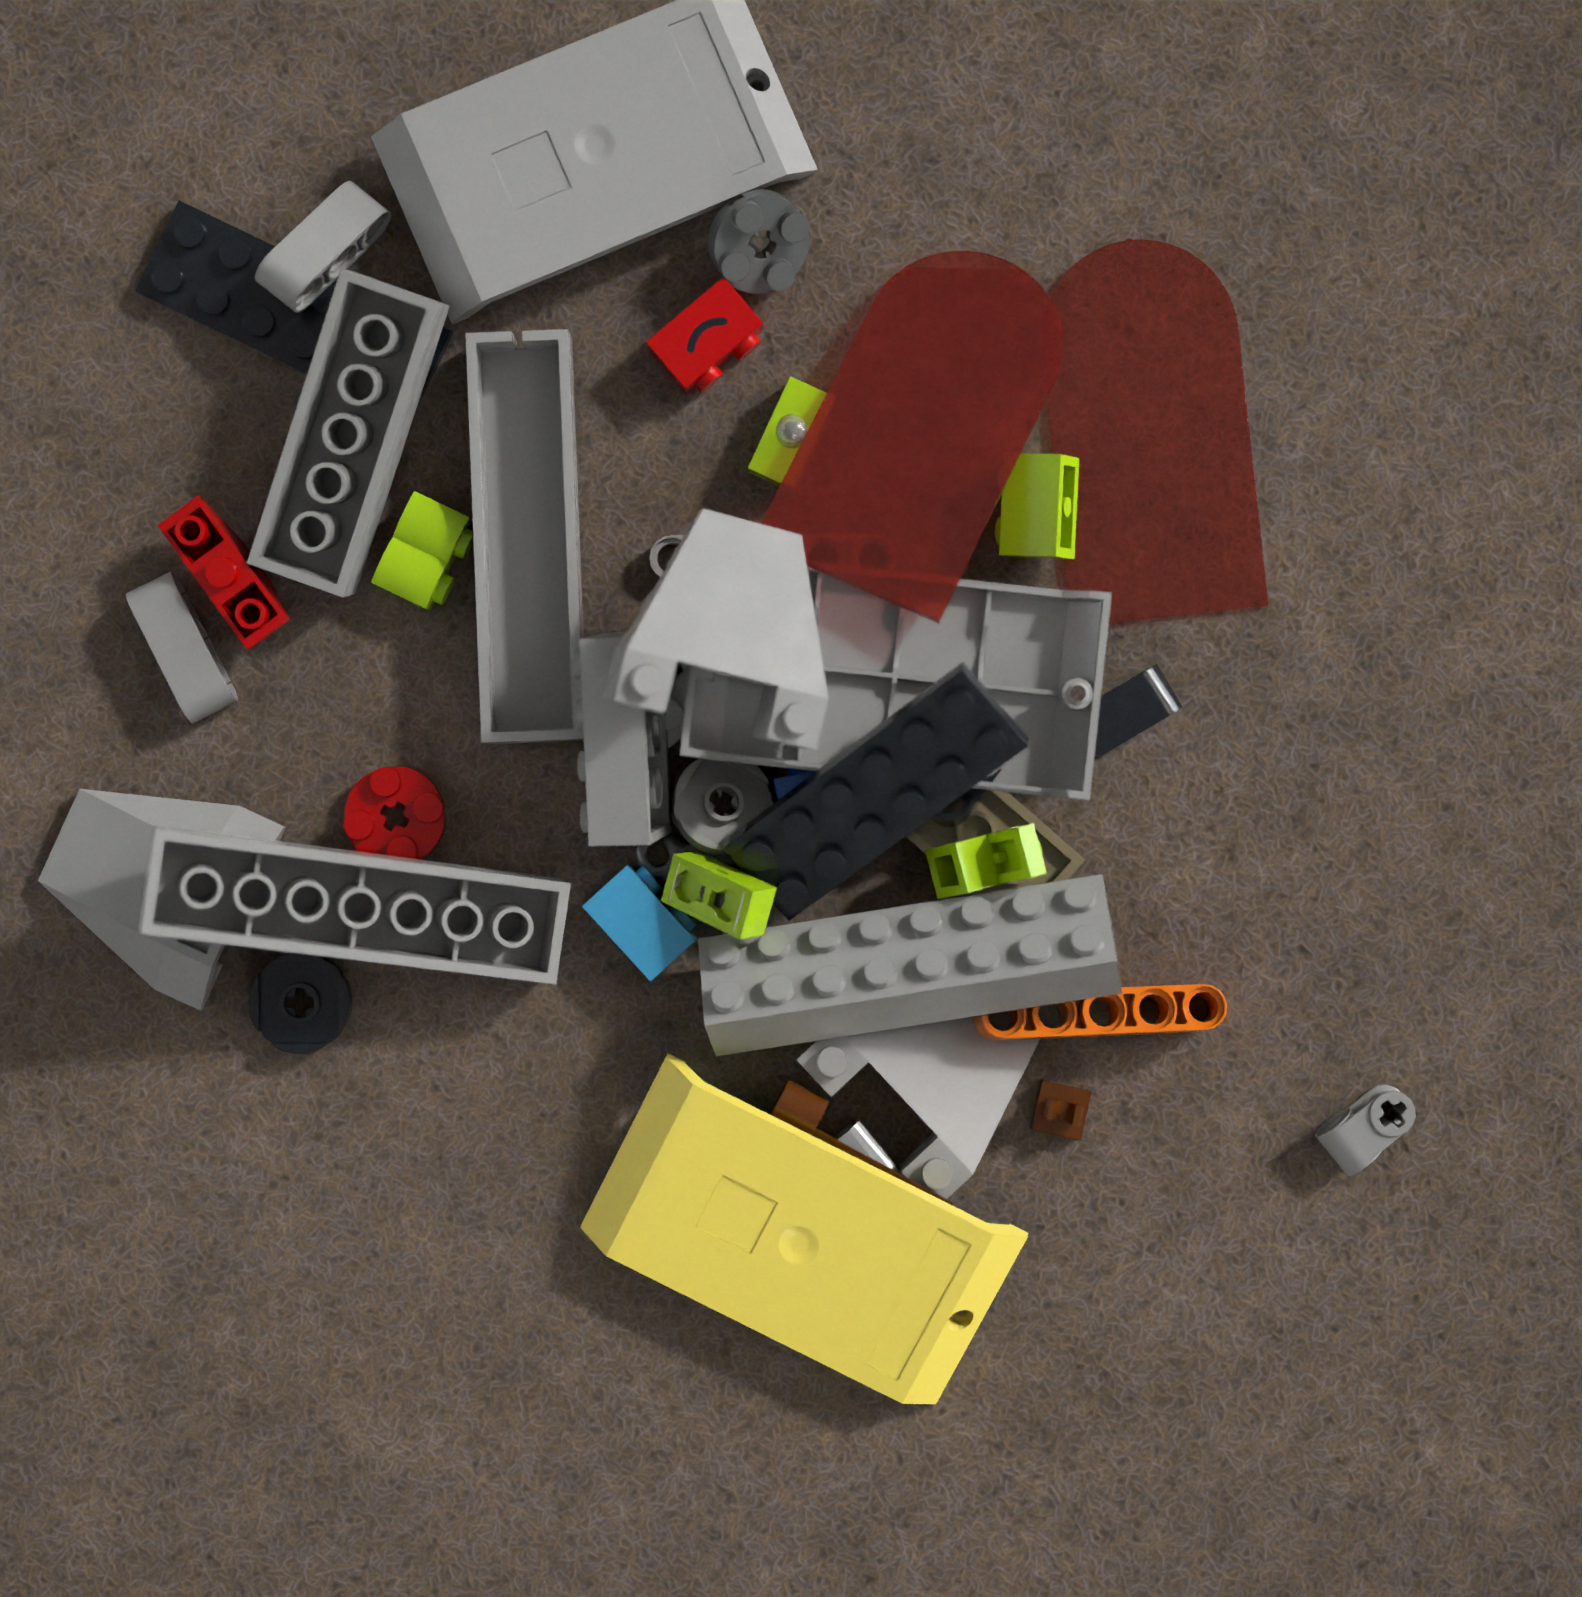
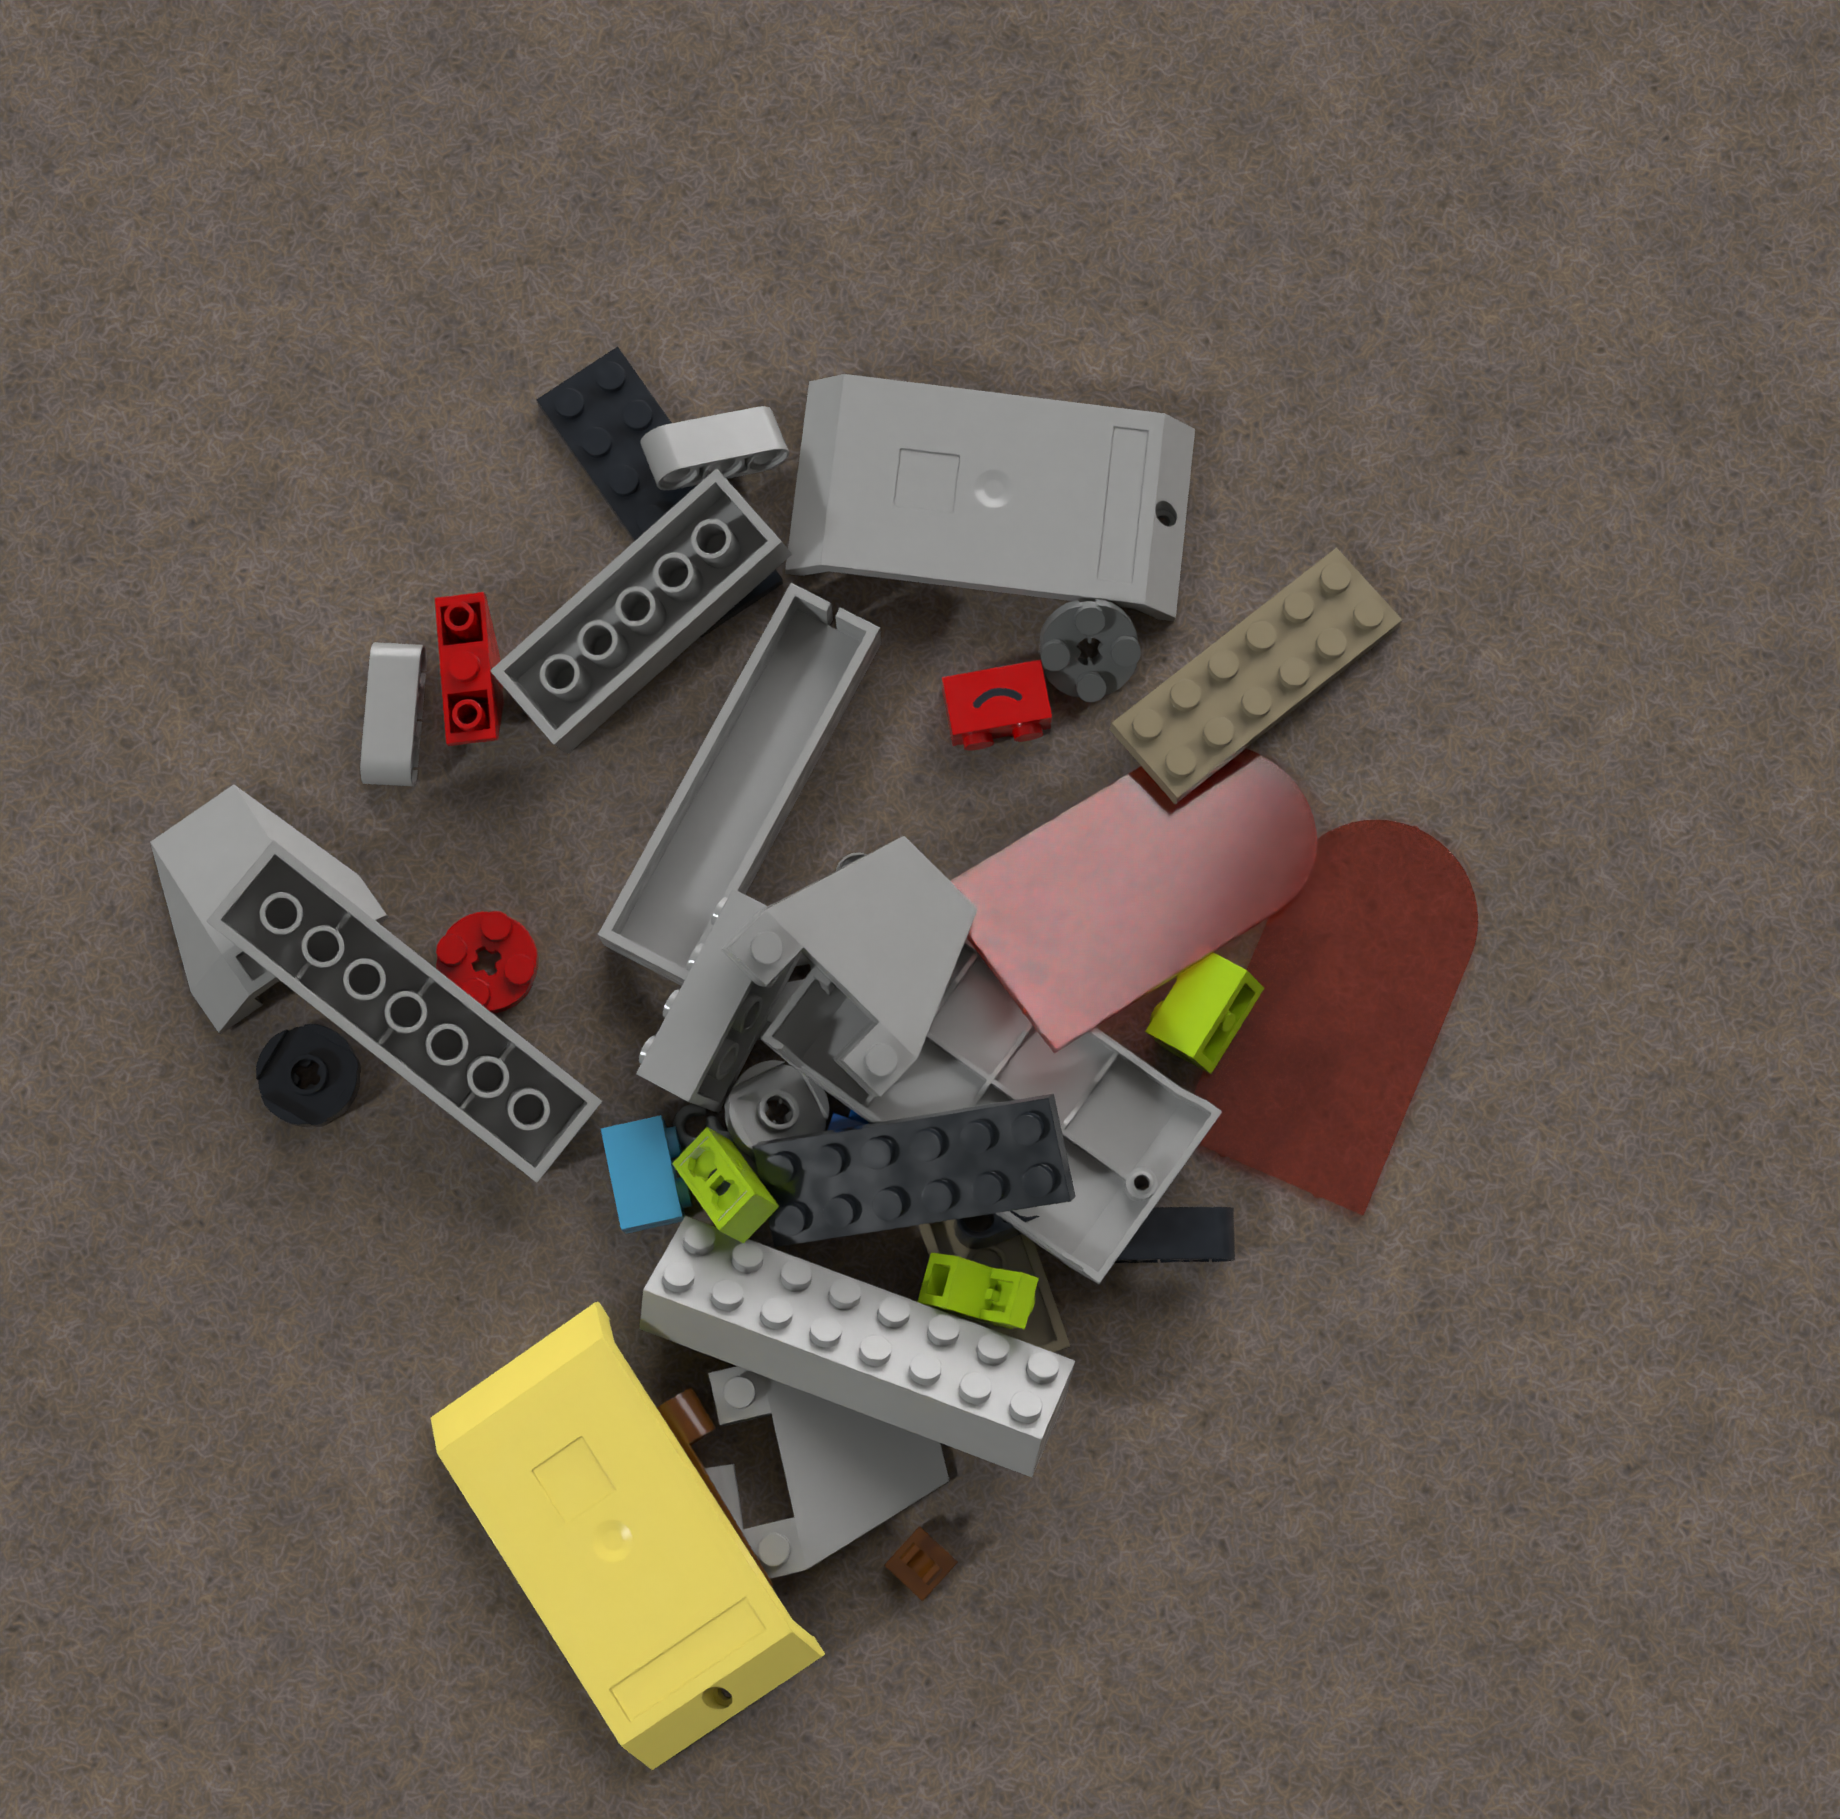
camera: 25 degrees right, 10 degrees down
(424, 552) = (646, 749): lime brick -> none
(786, 431) = (1019, 819): lime piece -> none
(917, 182) = (1255, 675): none -> dark tan plate
(1124, 1015) = (1025, 1510): orange beam -> none
(1362, 1132) = (1178, 1742): light grey piece -> none

